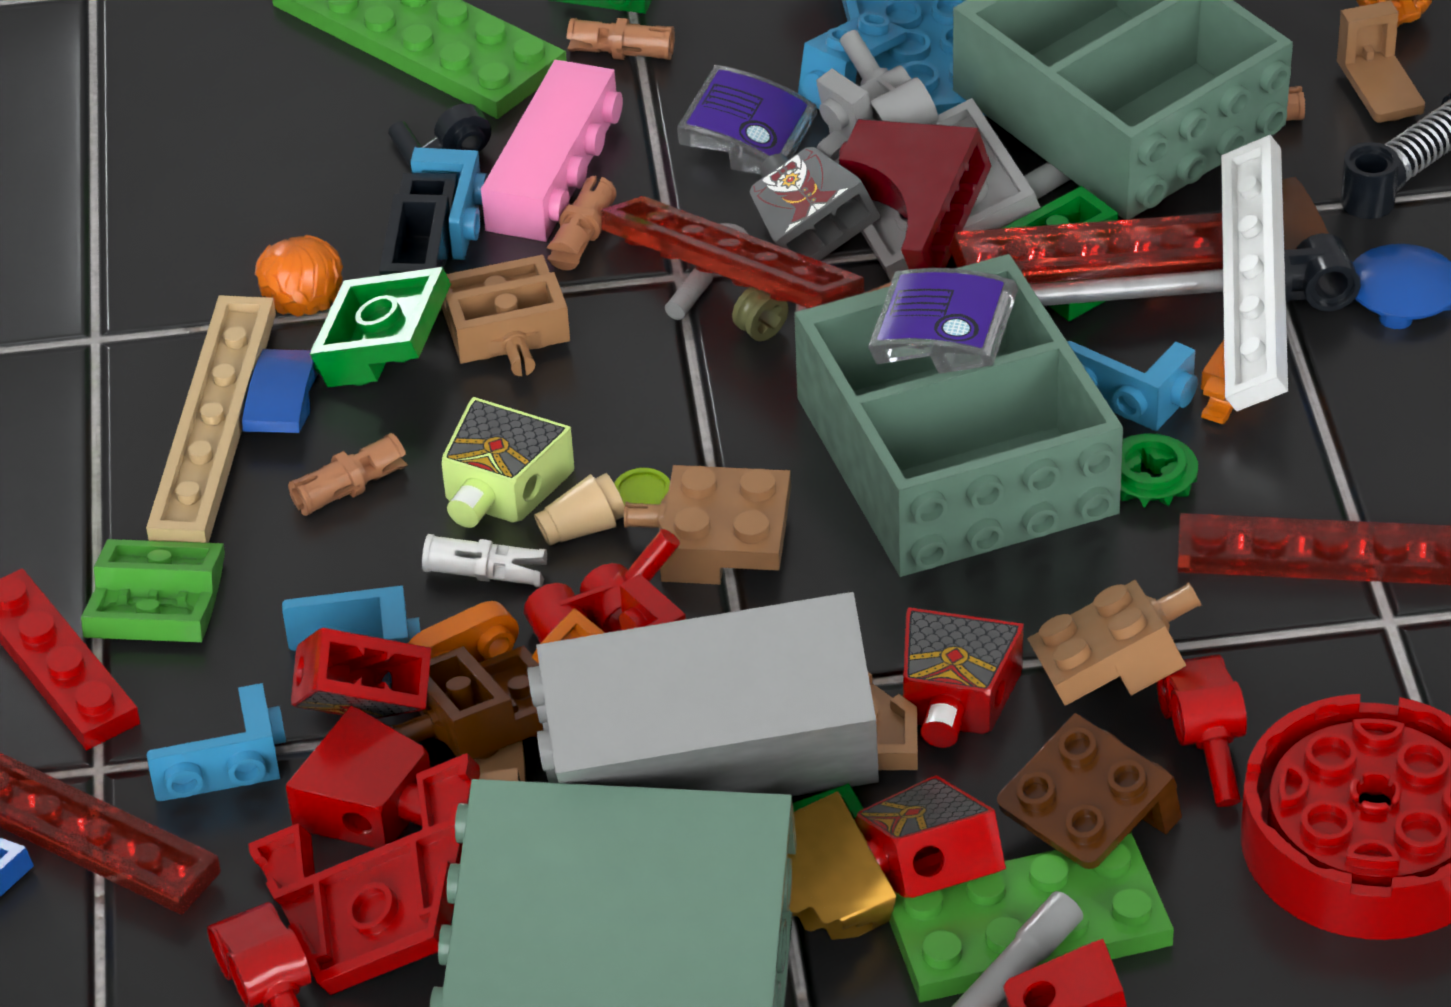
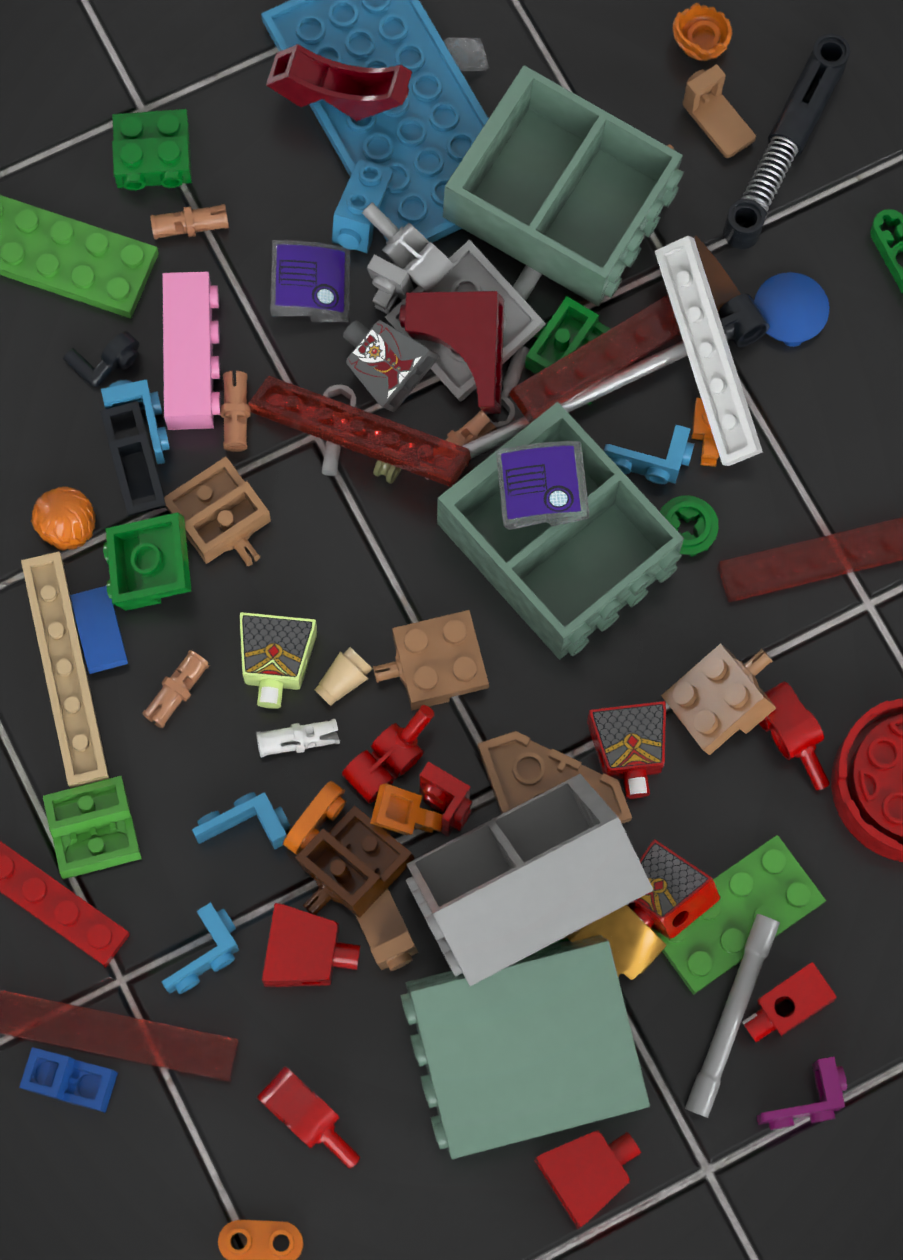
camera: 25 degrees left, 30 degrees up
(347, 670) = (261, 887): red torso -> none
(381, 904) = (355, 1051): red wing -> none
(642, 486) = (370, 639): lime piece -> none
(1089, 793) = (747, 823): reddish brown bracket -> none

